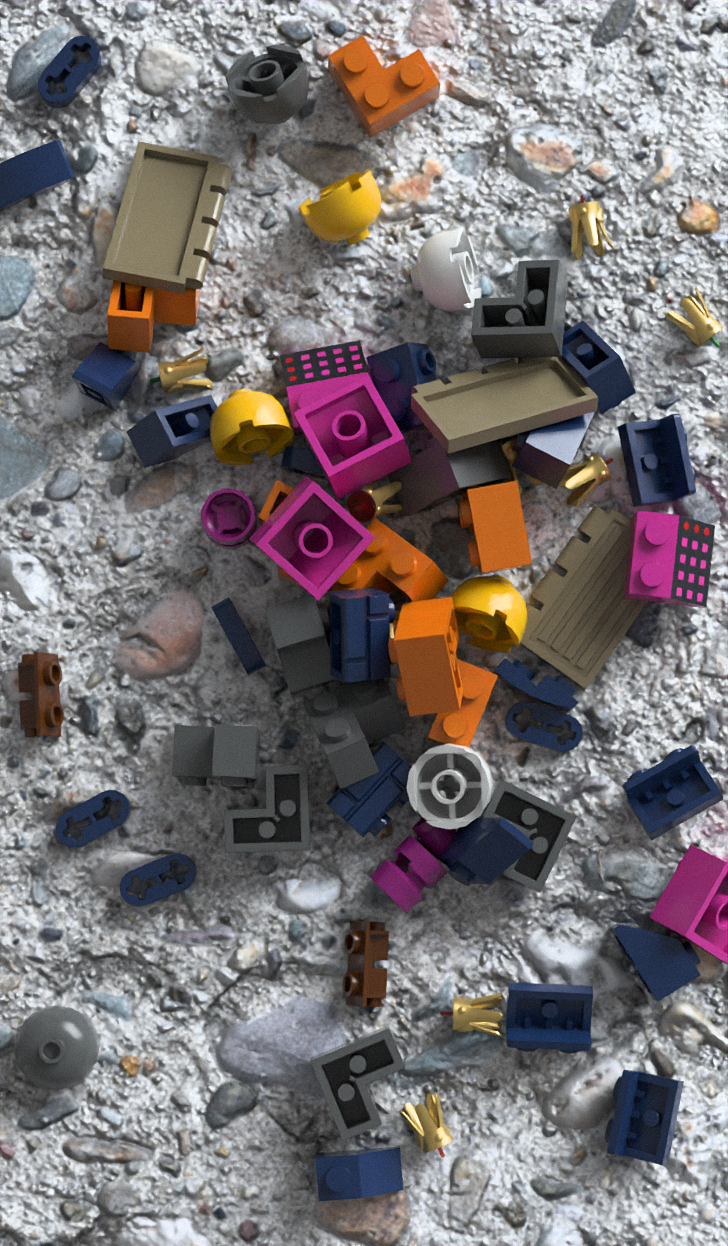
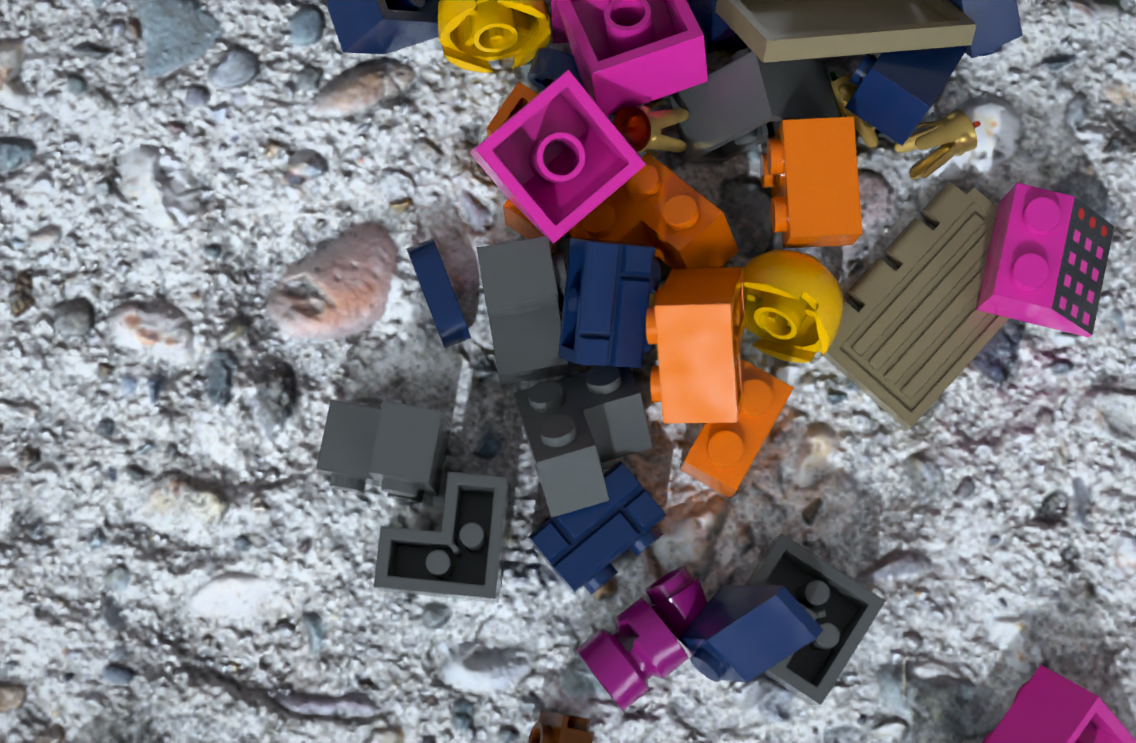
camera: 10 degrees right, 5 degrees down
(42, 676) = (161, 315): reddish brown hinge -> none
(89, 809) = (196, 506): dark blue beam -> none
(162, 889) = (282, 629): dark blue beam -> none
(229, 518) = (445, 120): magenta wheel -> none
(449, 786) = (707, 534): white cylinder -> none
(546, 717) = (853, 460): dark blue beam -> none
(549, 692) = (861, 425): dark blue slope -> none
(657, 460) = (1043, 129): dark blue bracket -> none
(671, 791) = (1018, 585): dark blue bracket -> none

